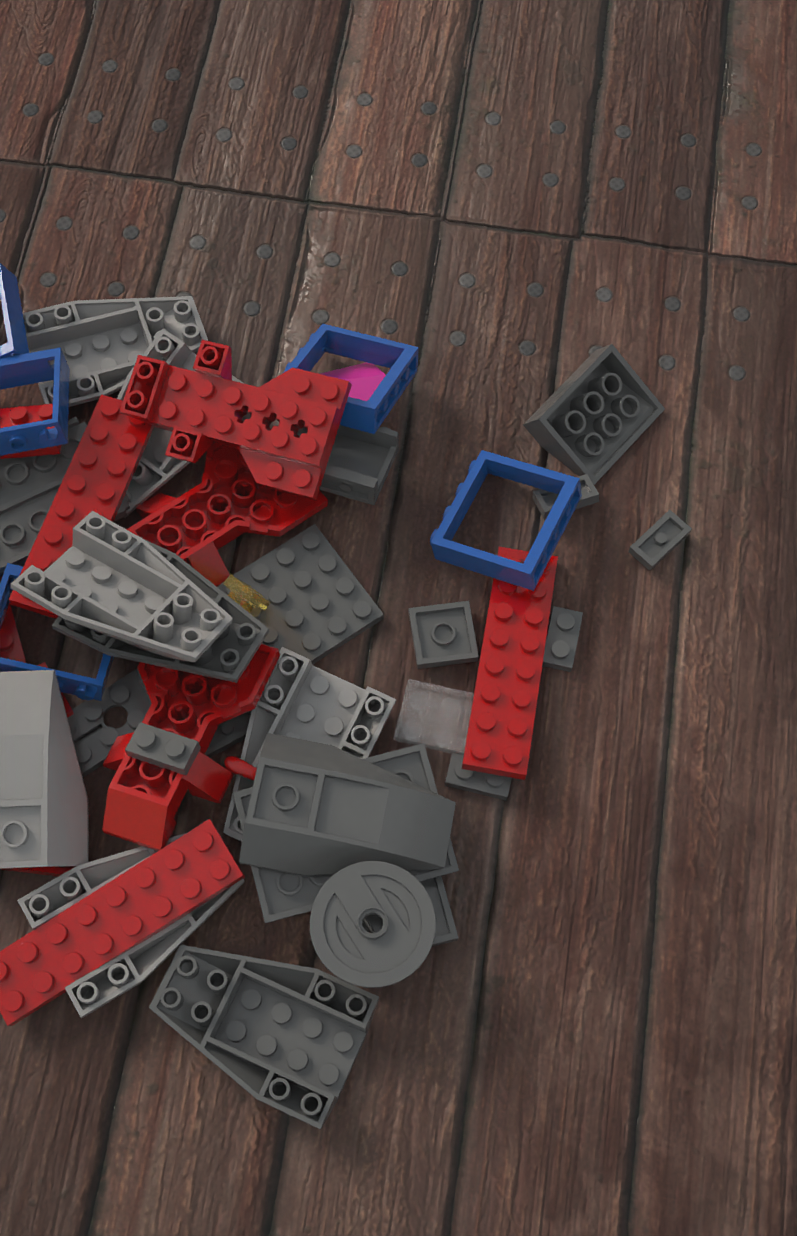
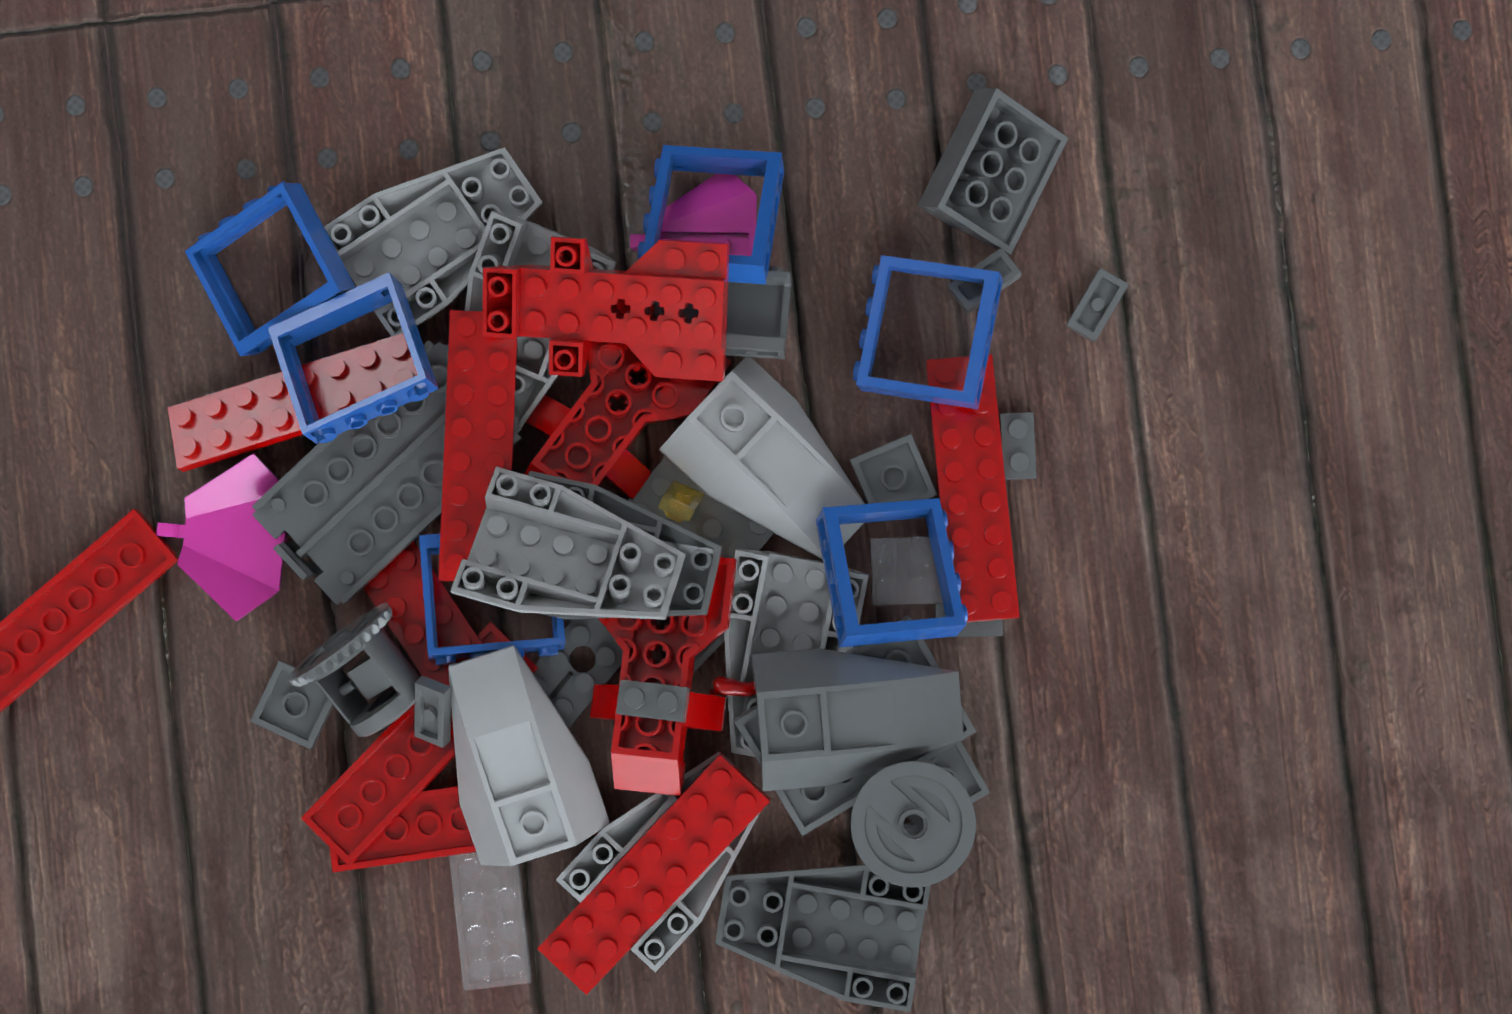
camera: 15 degrees left, 20 degrees up
(333, 589) = (762, 457): none -> light grey wedge
(404, 743) = (838, 579): none -> blue window

